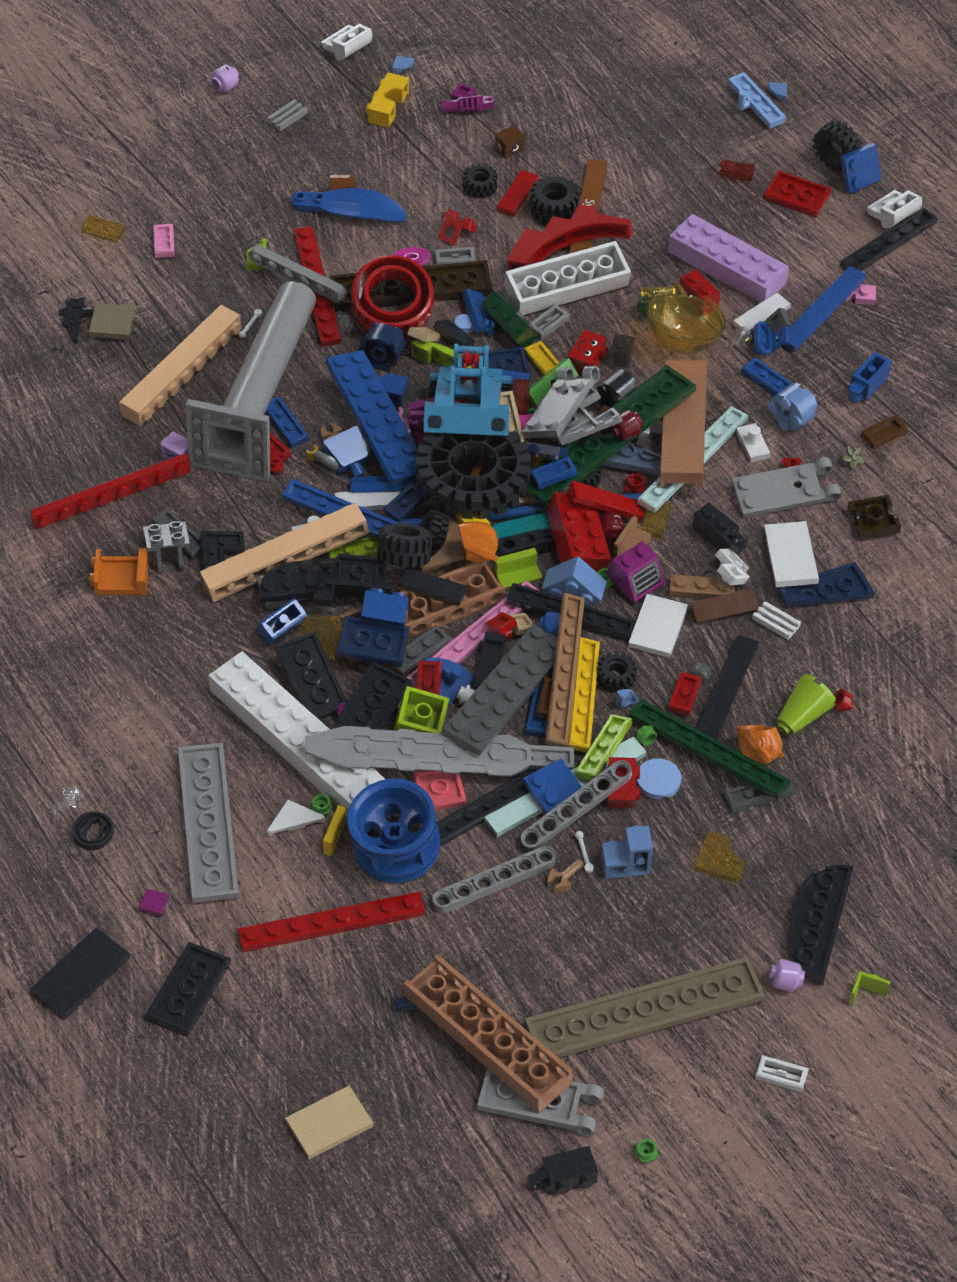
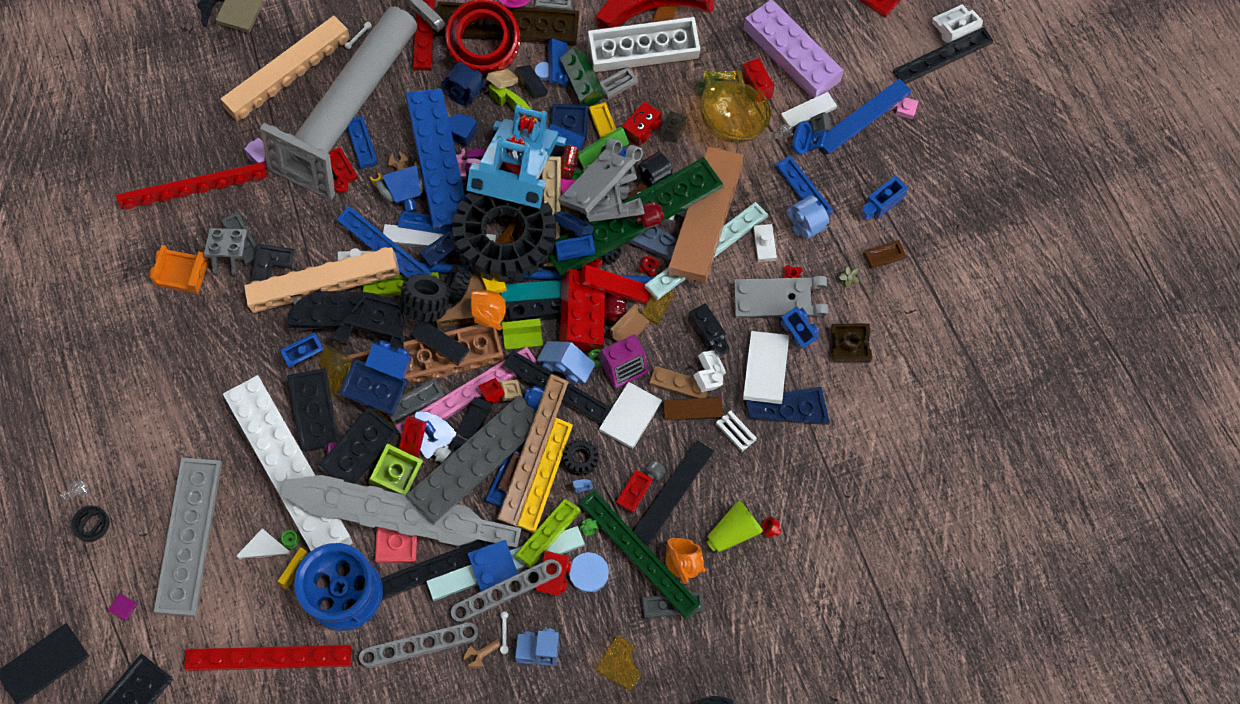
camera: 10 degrees right, 15 degrees up
(816, 509) = (803, 332): none -> blue brick

